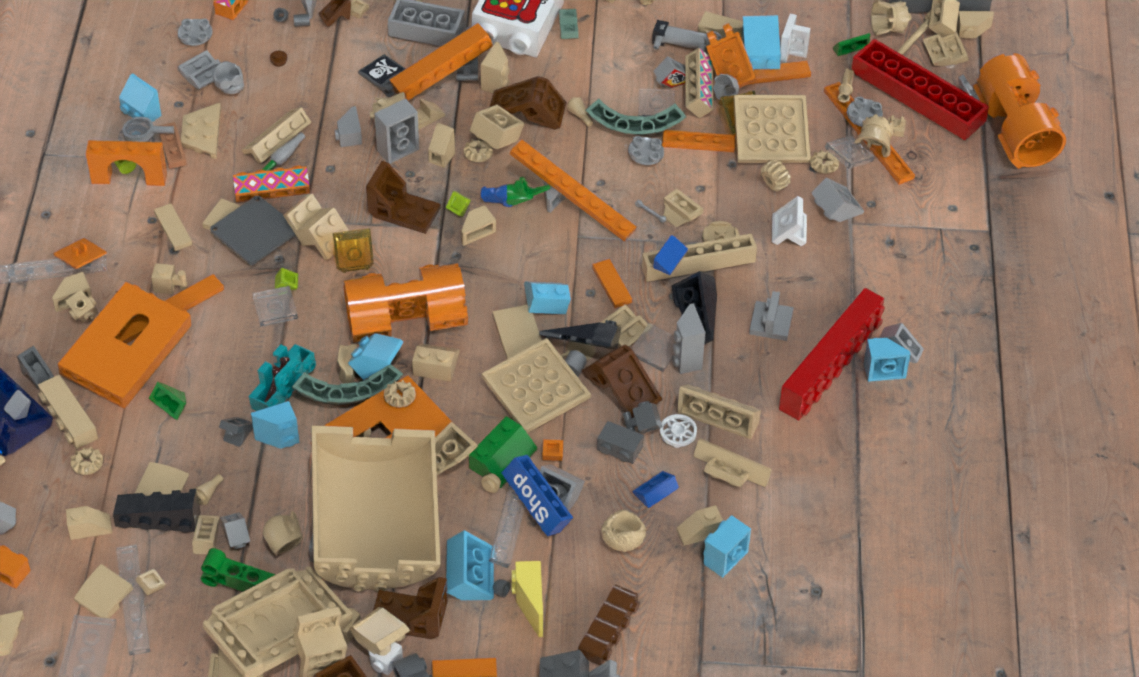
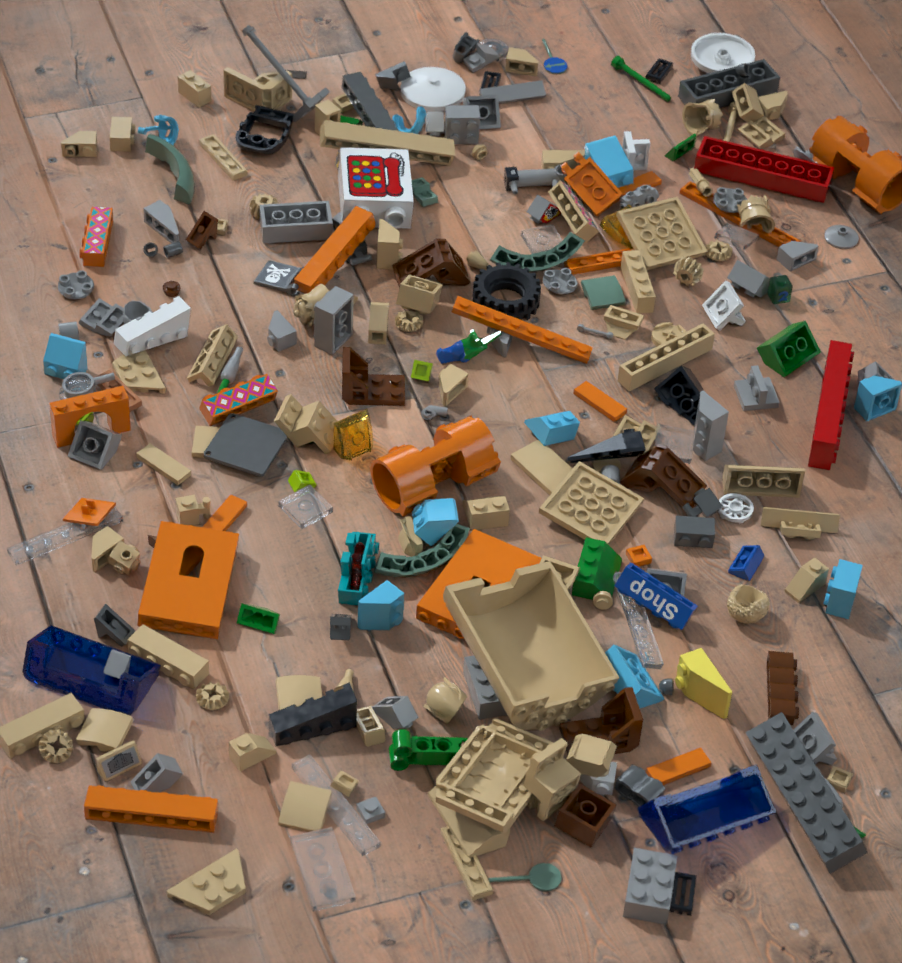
camera: 25 degrees left, 5 degrees down
(121, 190) = (94, 444): none -> light grey slope
(160, 615) = (370, 810): none -> light grey plate
(162, 74) = (69, 330): none -> light grey brick
(233, 94) = (154, 328): none -> white wedge
(394, 399) = (478, 552): tan gear -> none
(446, 247) = (432, 411): none -> light grey arm
(588, 132) = (508, 278): none -> black tyre
(669, 255) = (647, 360): blue slope -> none
(681, 173) = (603, 292): none -> sand green slope
(720, 172) = (638, 281): none -> tan brick
(725, 86) = (599, 208): light grey hair -> none
(773, 85) = (641, 196): none -> light grey brick
(830, 284) = (789, 348): none -> green slope
(859, 219) = (780, 289): none -> clear green brick
(900, 187) = (796, 254): none -> light grey slope
(962, 181) = (841, 236): none -> light grey dish

